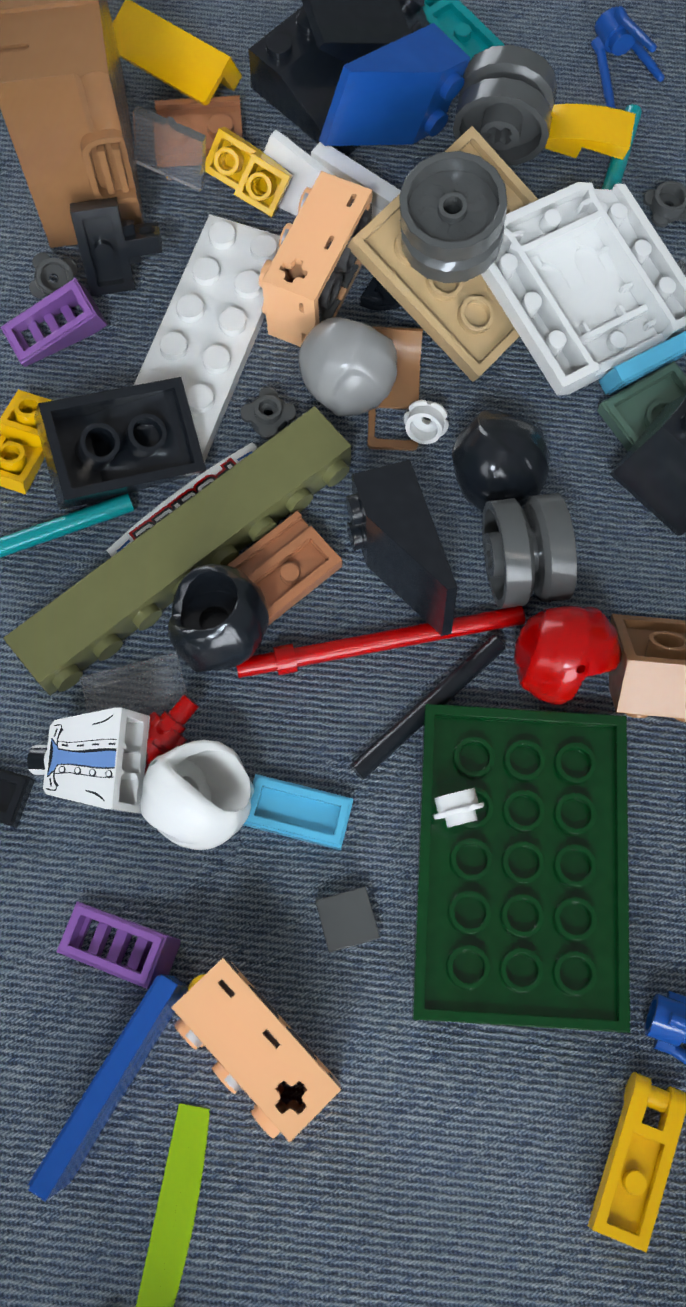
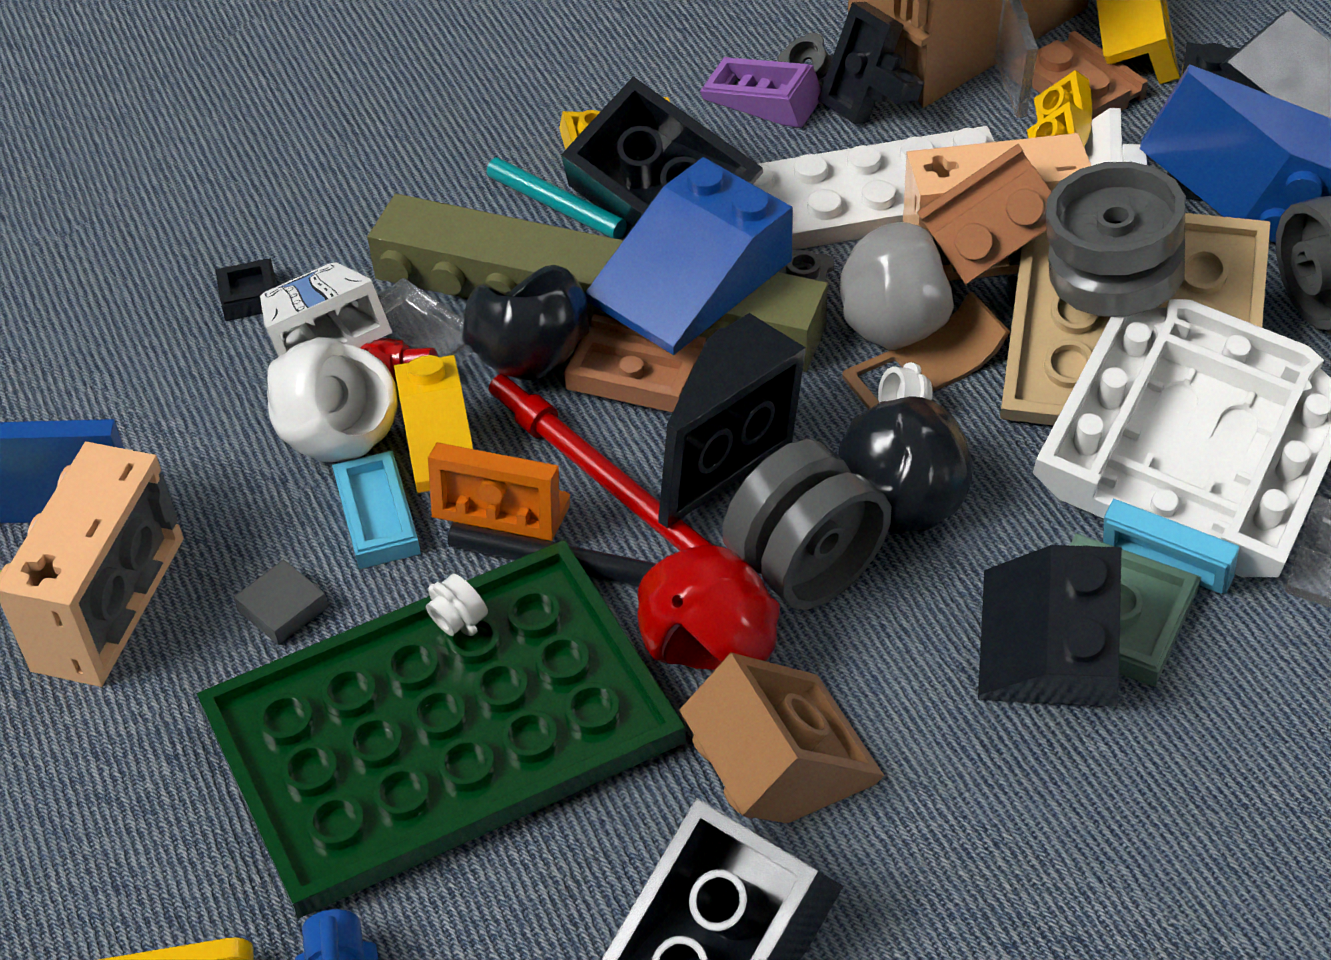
camera: 65 degrees right, 25 degrees down
(158, 960) = (154, 435): medium lavender slope -> none
(248, 475) = (694, 255): none -> blue slope
(267, 732) = (431, 410): none -> yellow slope
(359, 724) = (496, 491): none -> orange bracket
(360, 270) = (989, 214): none -> nougat plate

